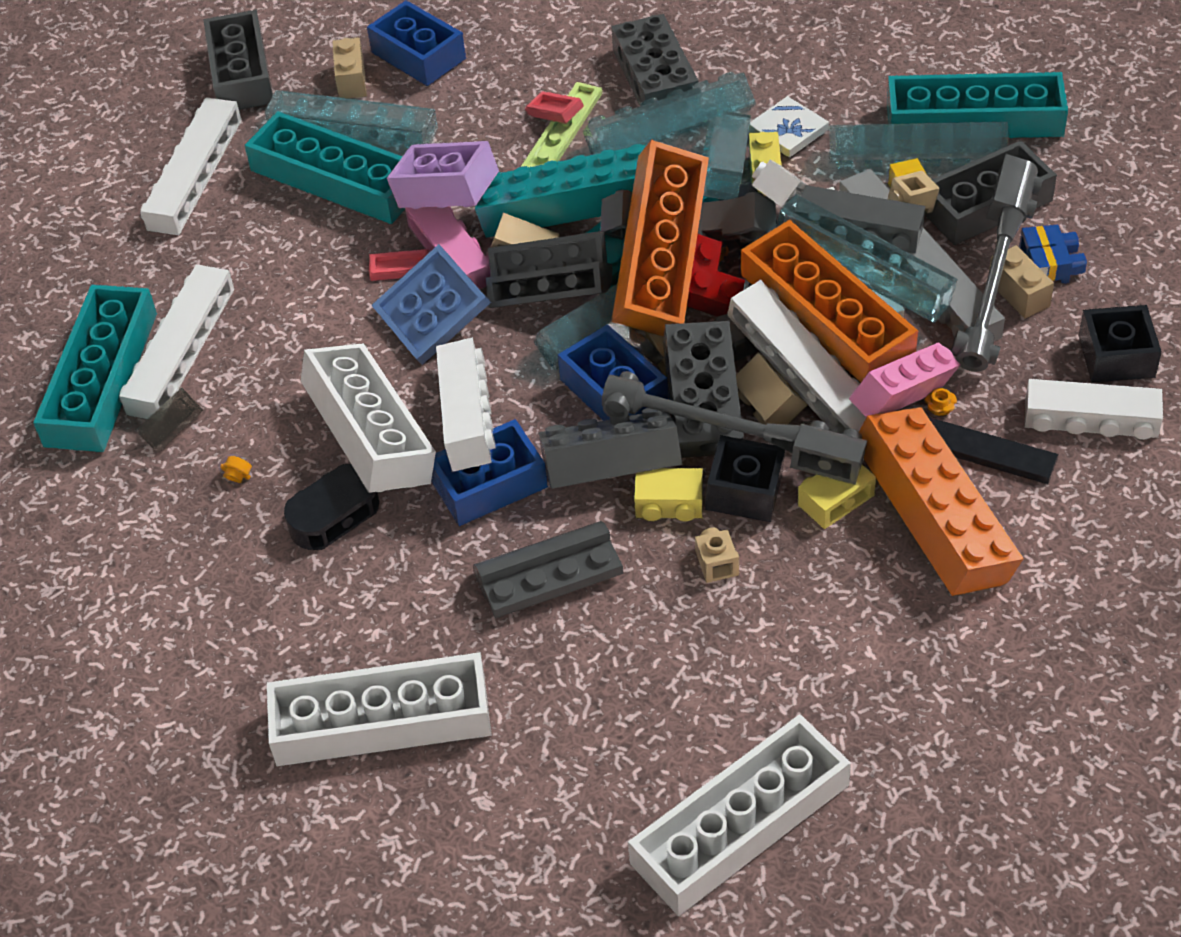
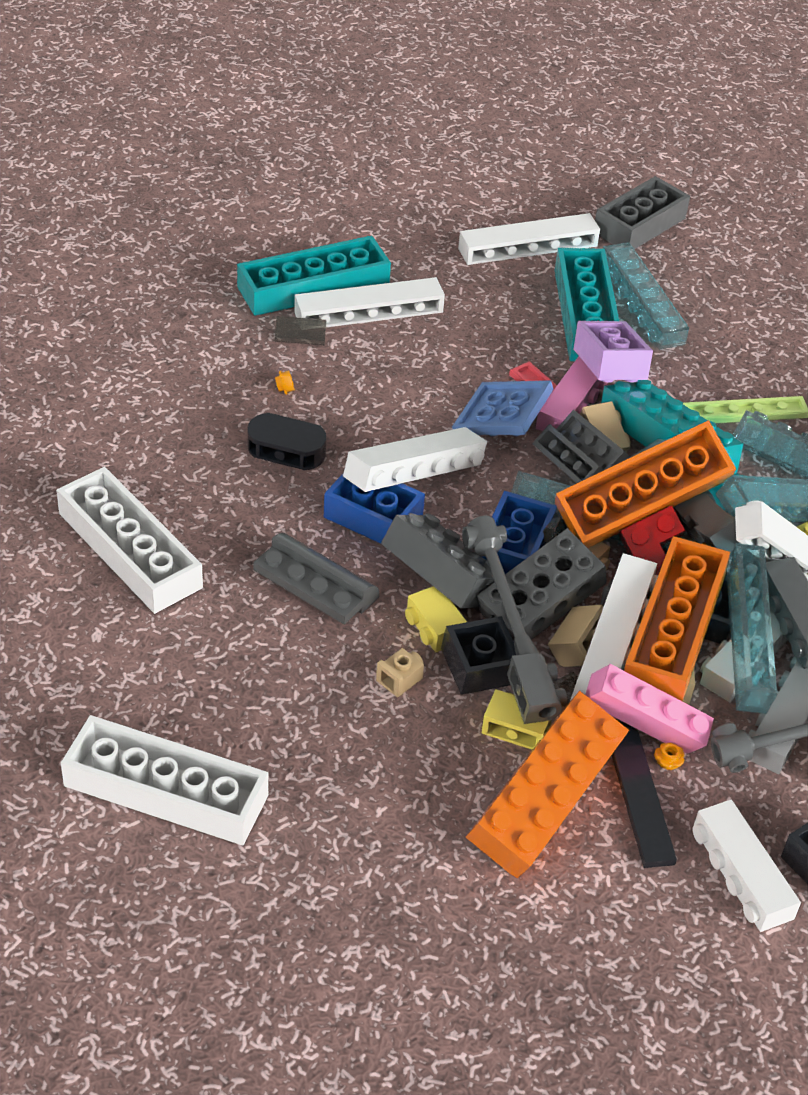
camera: 50 degrees right, 5 degrees down
(349, 68) = (690, 270): tan brick -> none
(367, 418) = (365, 414): white brick -> none
(416, 42) = (748, 291): blue brick -> none
(554, 107) = (760, 393): coral tile -> none

